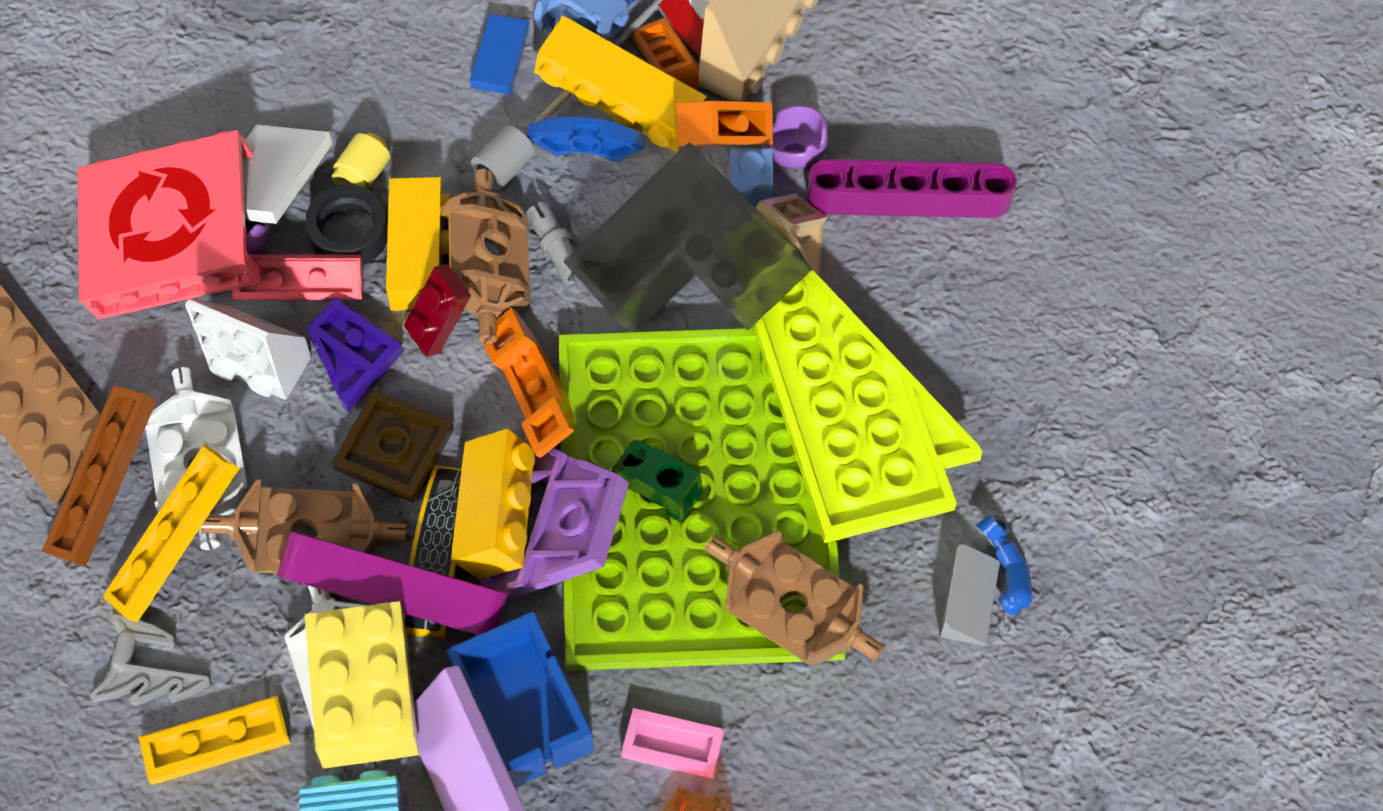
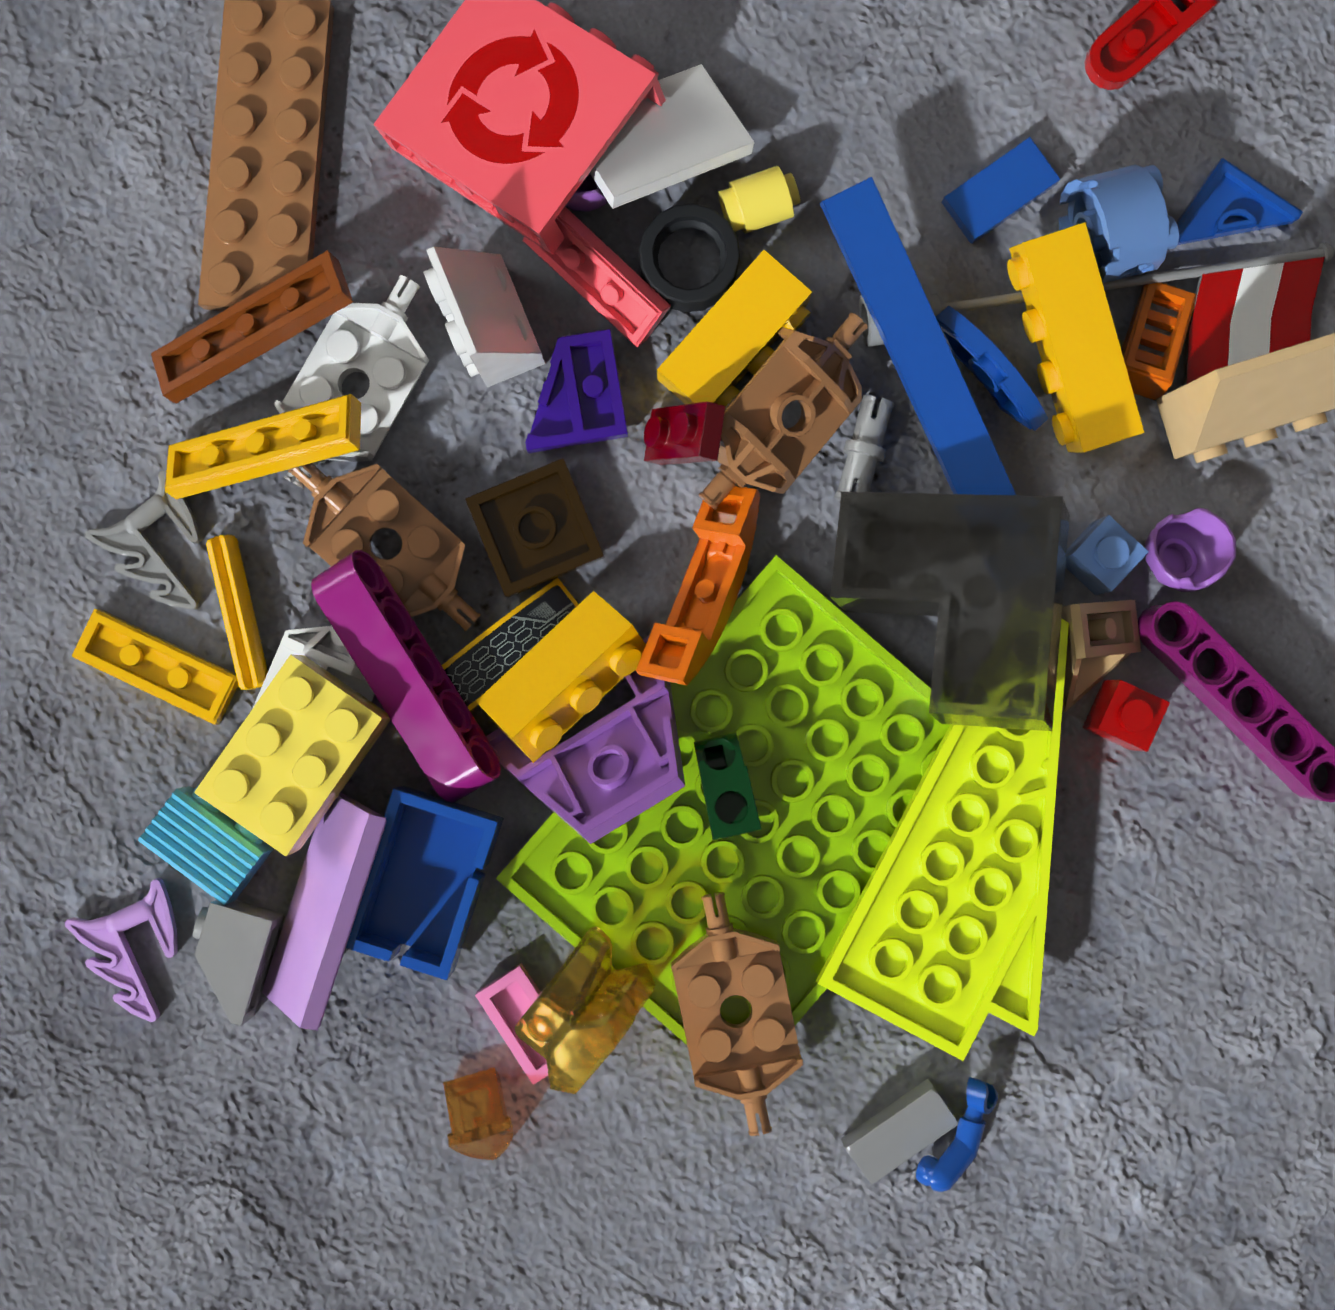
camera: 40 degrees right, 25 degrees up
(241, 658) = (237, 611): none -> yellow axle
(519, 149) = (915, 341): none -> blue tile
(698, 675) = (584, 1011): none -> clear yellow piece
(724, 123) = (1128, 484): orange brick -> none
(852, 249) = (1126, 715): none -> red brick

